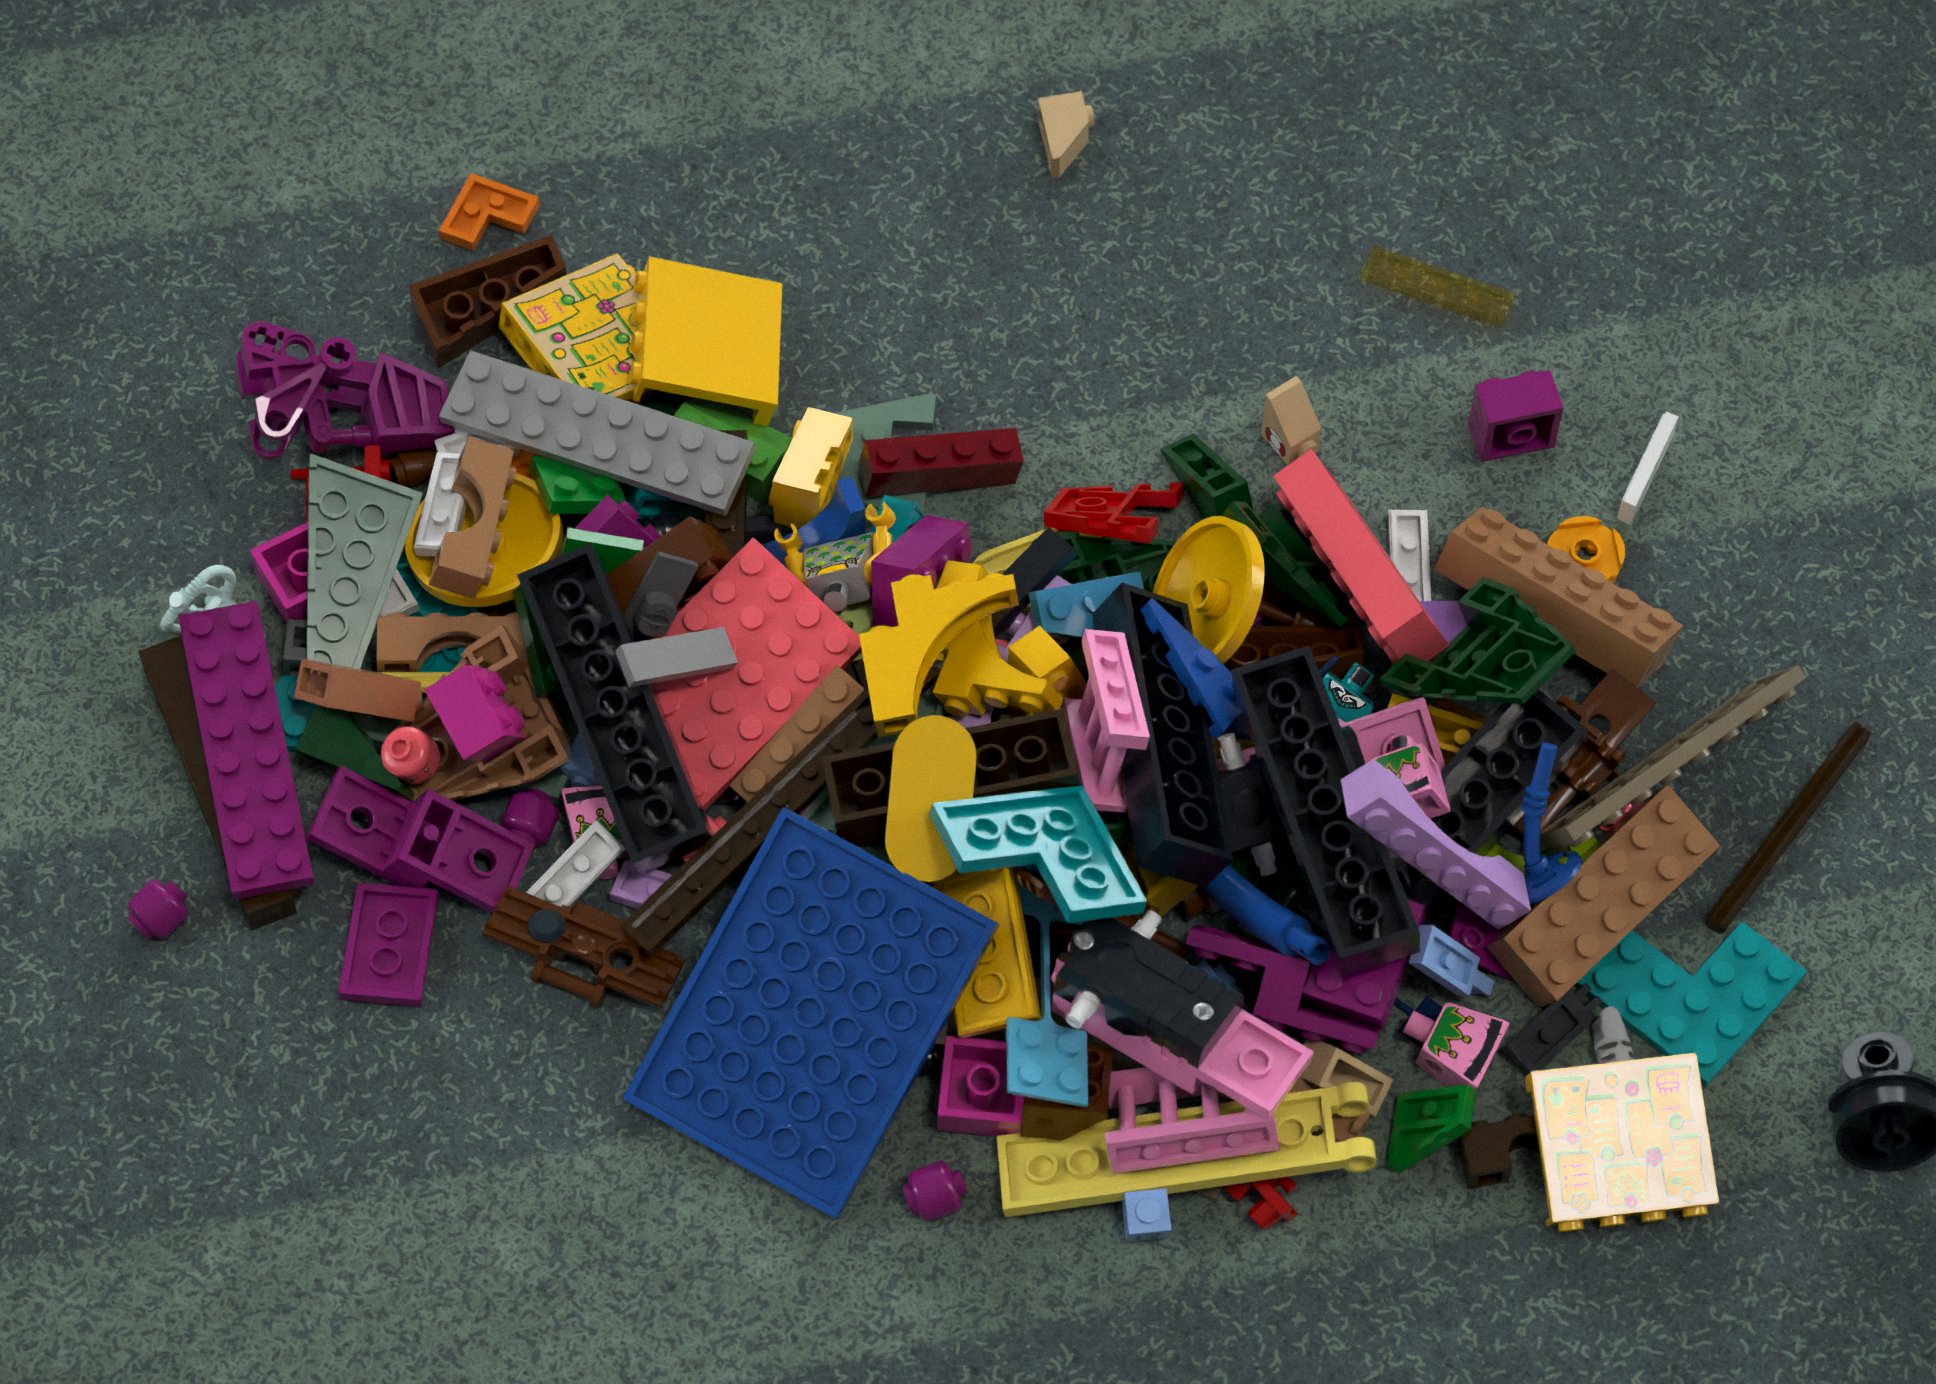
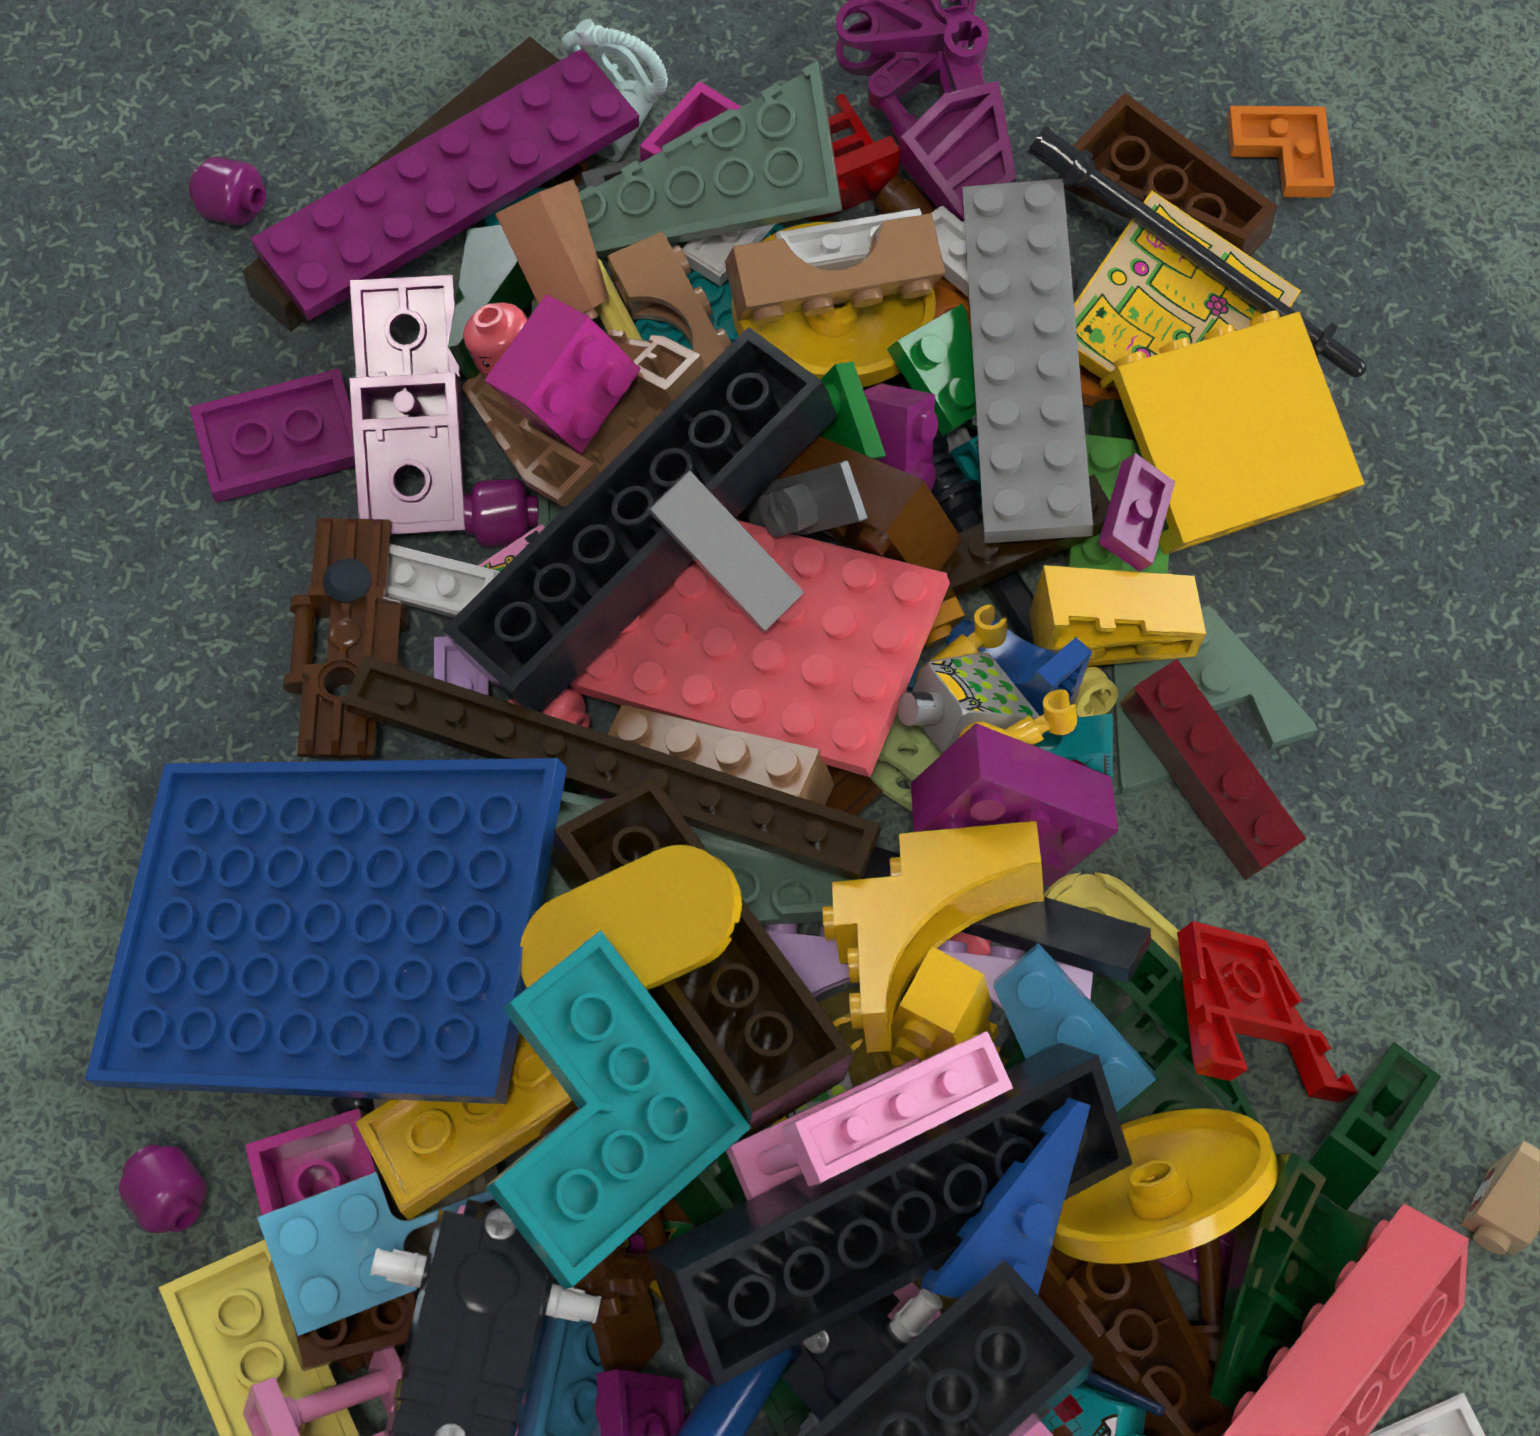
camera: 65 degrees right, 5 degrees up
(470, 336) = (1081, 170): none -> black bar
(753, 415) = (1137, 512): none -> magenta plate
(928, 621) = (849, 816): yellow arch -> none

